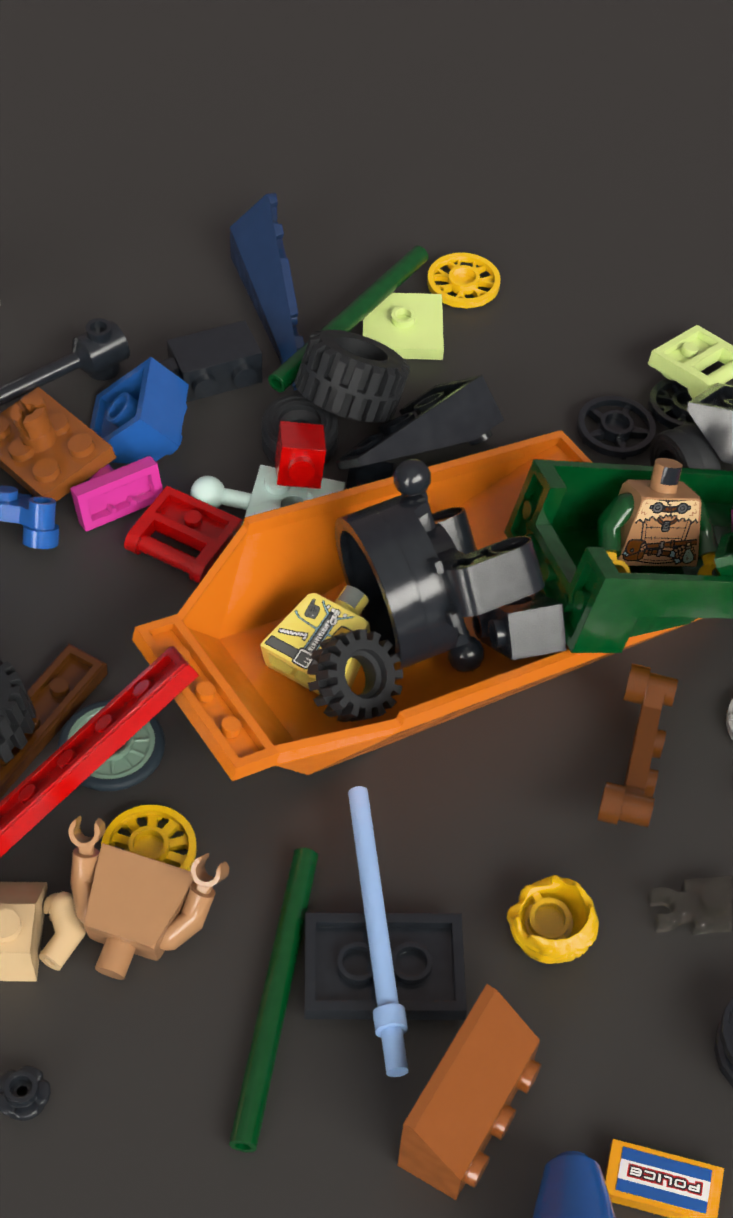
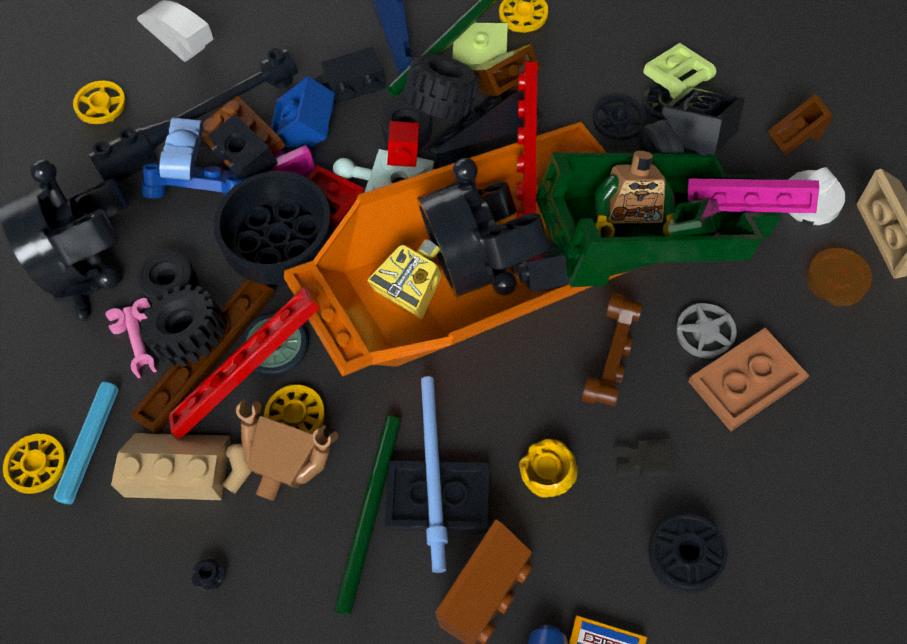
camera: 10 degrees right, 10 degrees up
(55, 458) = (241, 148): none -> black brick
(107, 565) = (269, 201): none -> black wheel
(378, 671) = (443, 303): black tyre -> none
(449, 357) = (502, 71): none -> reddish brown slope
(489, 443) = (527, 137): none -> red plate

